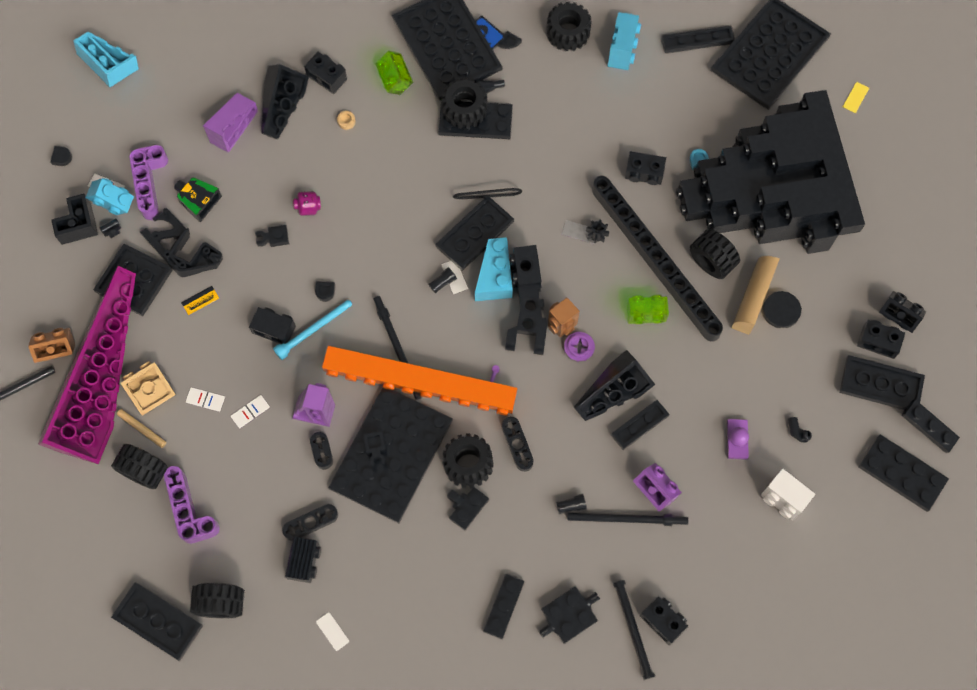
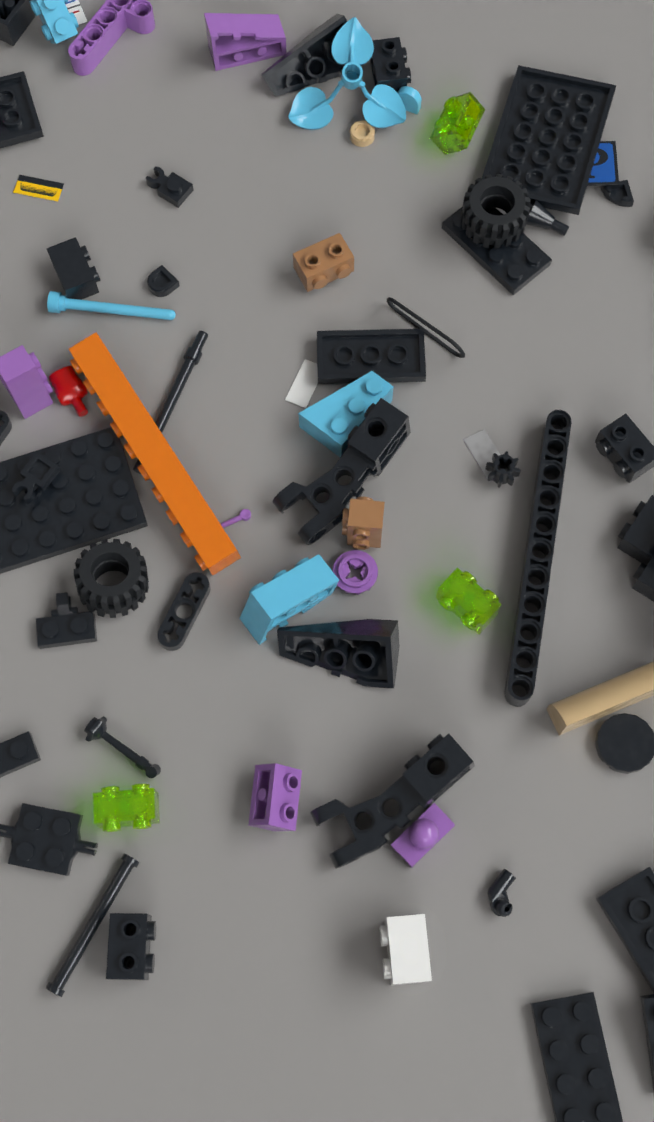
camera: 45 degrees right, 0 degrees up
(111, 228) = (28, 49): black plate -> none
(197, 197) = (136, 86): torso -> none
(205, 259) = (80, 149): black piece -> none
(307, 203) = (233, 180): magenta head -> none
(340, 389) = (69, 389): none -> red piece
(345, 96) = (352, 49): none -> medium azure plant
(353, 81) = (410, 98): none -> medium azure tile
(402, 205) = (323, 262): none -> medium nougat brick
(446, 277) = (293, 375): black pin -> none
(538, 539) = (97, 729): none -> black piece
(562, 389) = (287, 595): none -> medium azure wedge
(575, 503) = (176, 730): black pin -> none
(589, 565) = (126, 807): none -> clear neon green brick
(640, 424) = (331, 715): black plate -> none
(666, 520) = (251, 844): black bar -> none
(714, 254) = (605, 608): black tyre -> none
(715, 420) = (411, 790): none -> black brick

